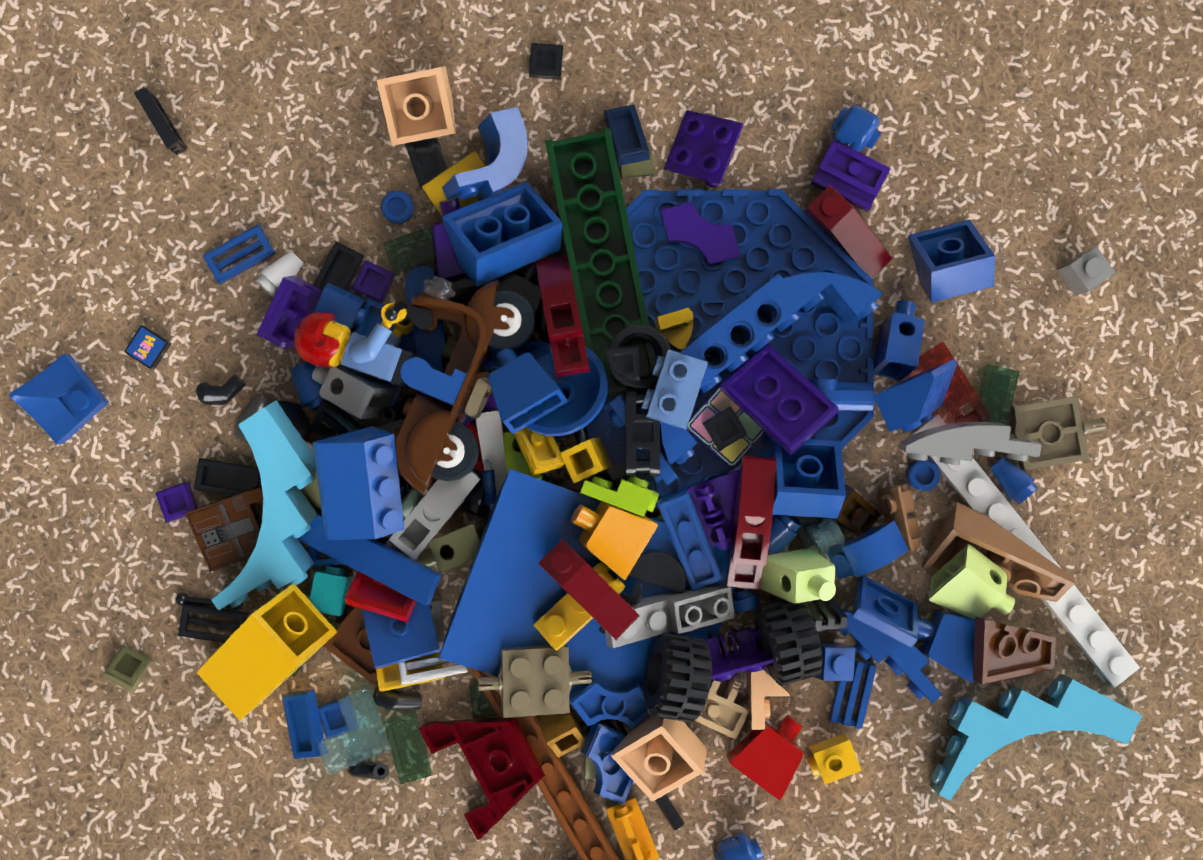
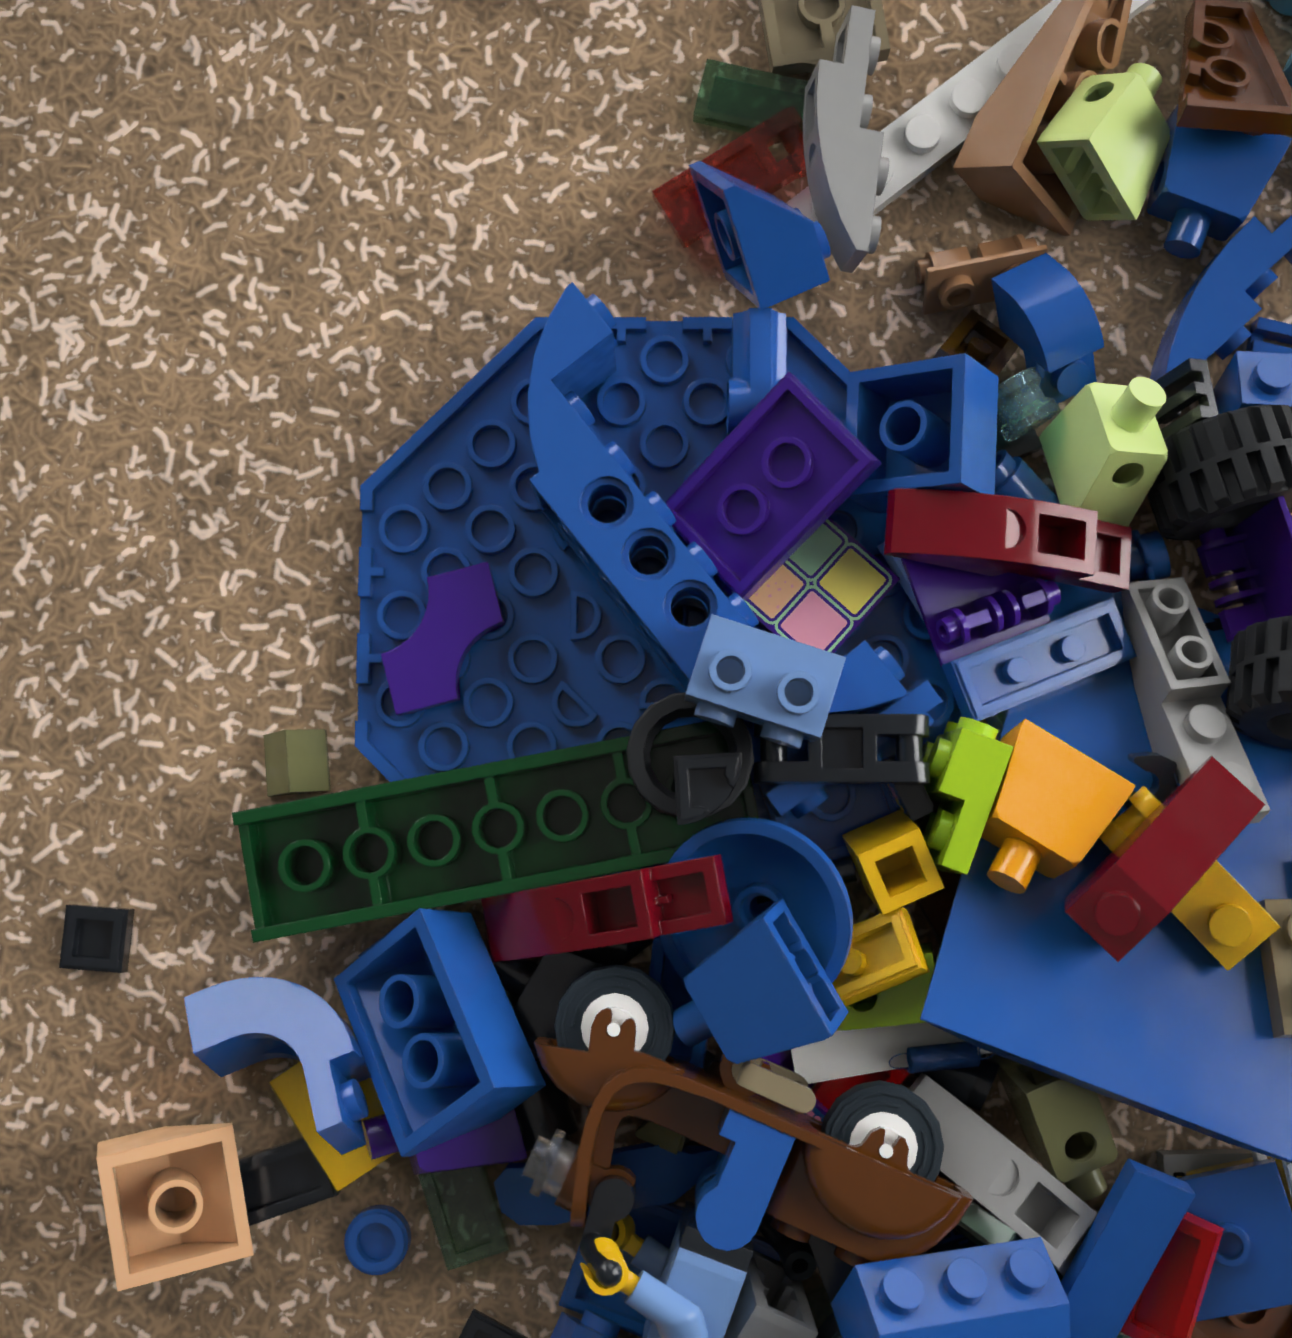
camera: 90 degrees left, 5 degrees down
(373, 281) = (525, 1290): dark purple tile -> none
(626, 135) = (247, 779): dark blue tile -> none
(659, 569) = (1101, 716): black tile -> none
(676, 327) = (627, 684): yellow tile -> none
(703, 147) = (275, 631): dark purple hinge -> none
(724, 428) = (823, 592): black tile -> none
(848, 230) = (439, 362): dark red slope -> none
(851, 175) = (337, 358): dark purple plate -> none
(856, 128) = (249, 345): blue head -> none
(886, 610) = (1164, 293): blue plate -> none
(899, 342) = (655, 267): blue torso -> none
(923, 475) = (902, 232): blue tile -> none
(952, 260) = (501, 173): blue slope -> none
(1013, 480) = (910, 68): blue cone -> none

